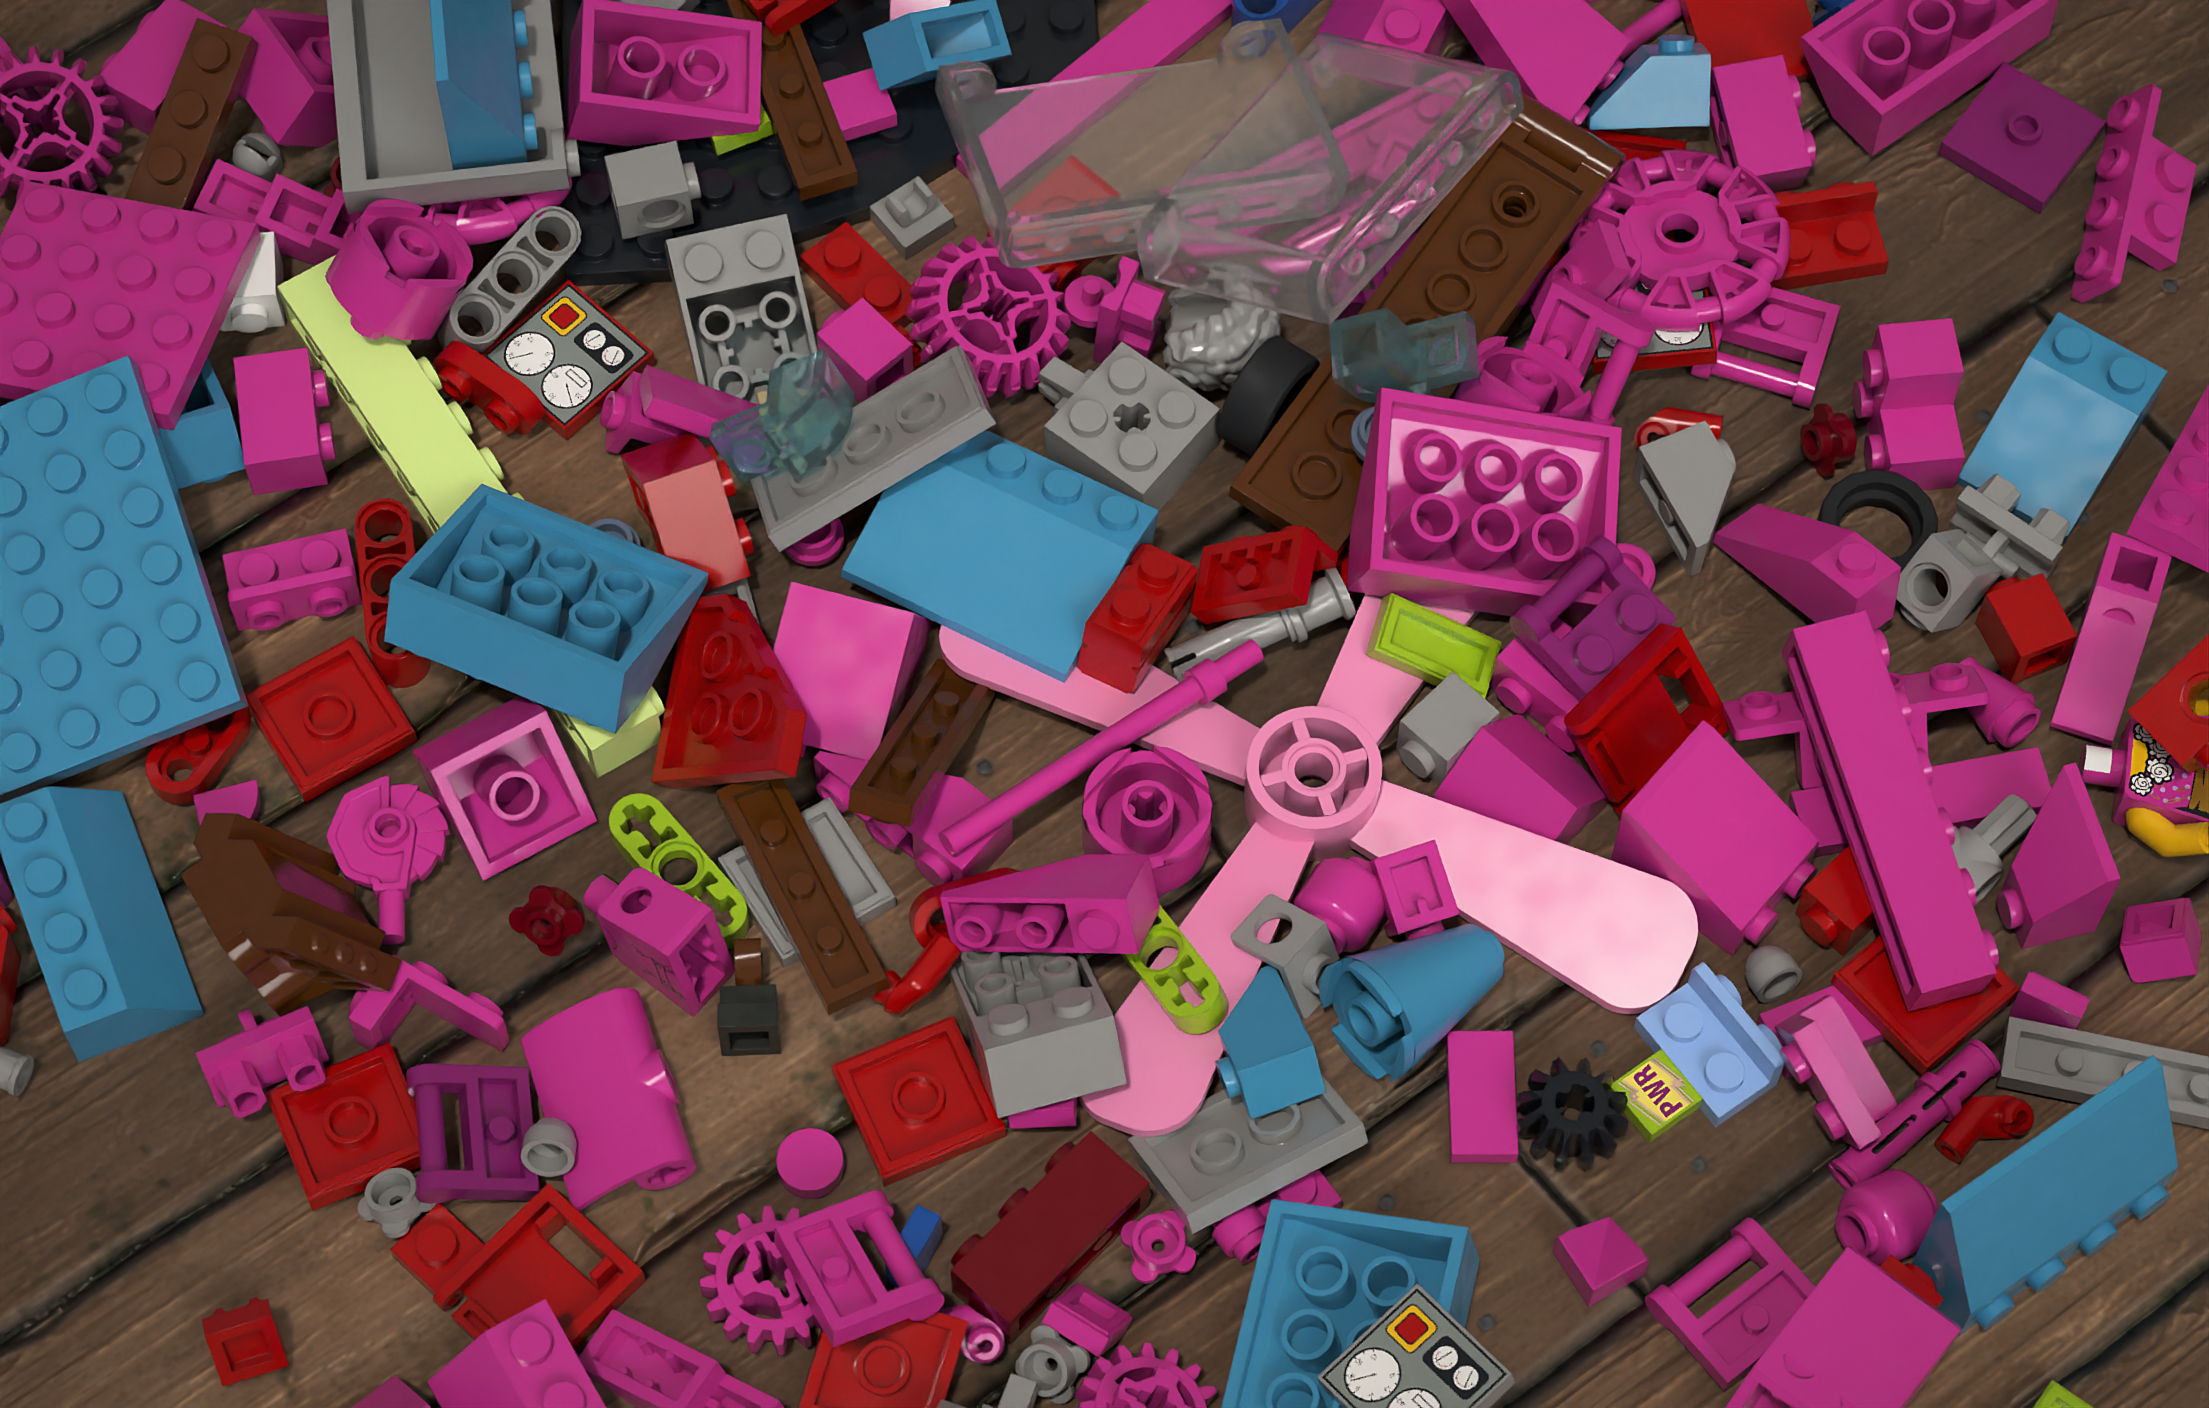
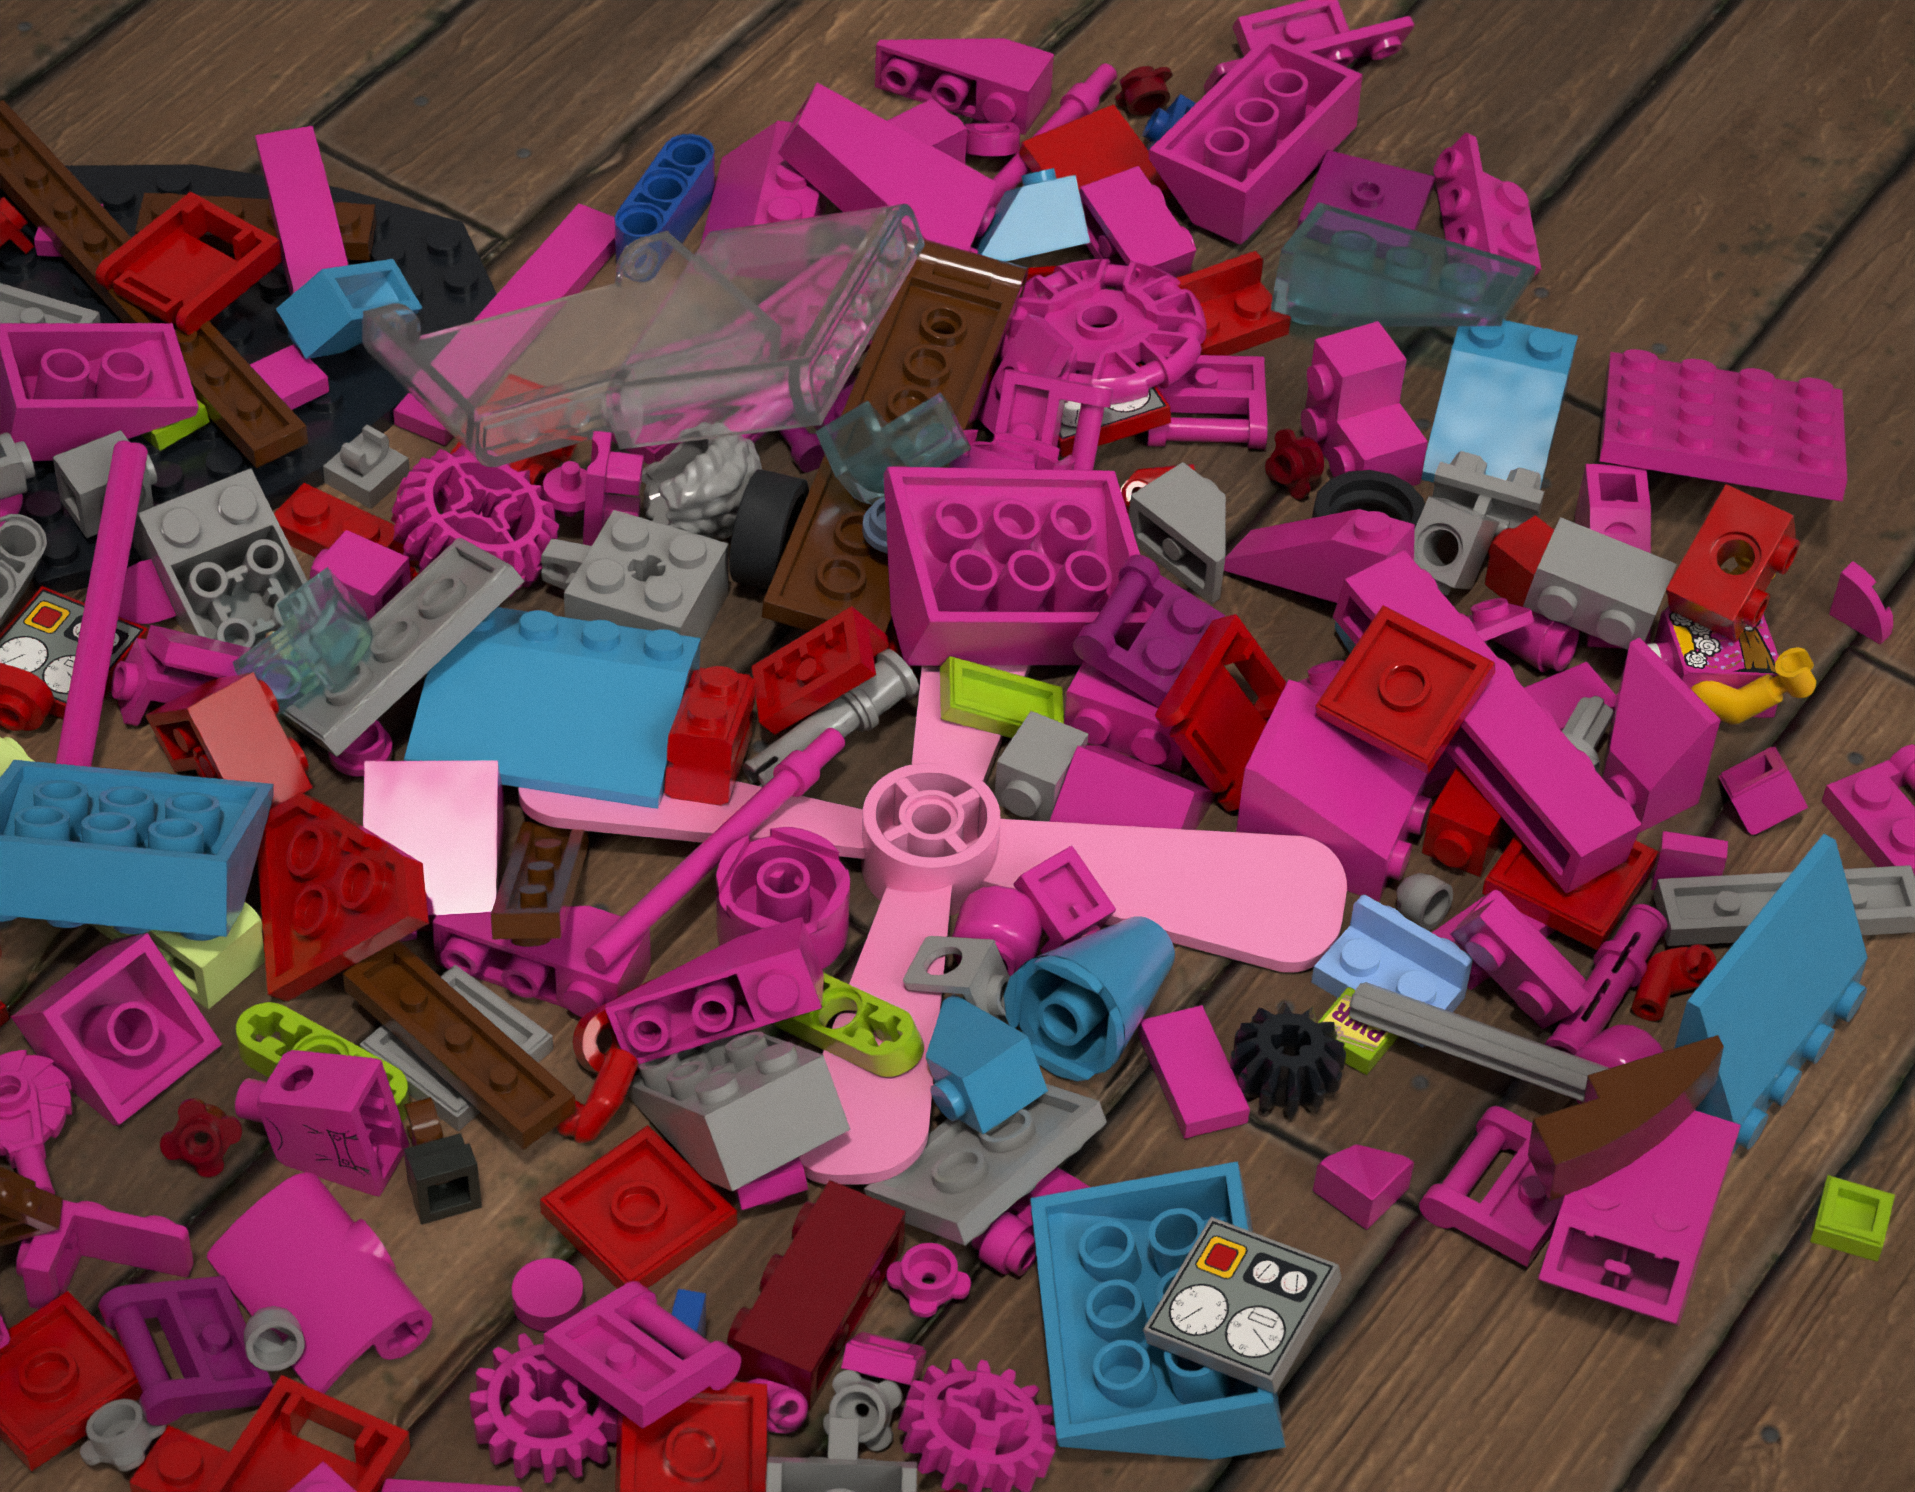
camera: 20 degrees left, 15 degrees down
(606, 337) = (102, 605): none -> dark pink axle
(653, 312) = (144, 595): none -> dark pink tile
(1773, 1167) = (1472, 1040): none -> light grey axle
(1810, 767) = (1405, 689): none -> red tile
(1845, 1296) = (1621, 1116): none -> reddish brown slope
(2003, 251) = (1365, 270): none -> clear light blue slope
(2067, 681) = (1598, 584): none -> light grey brick

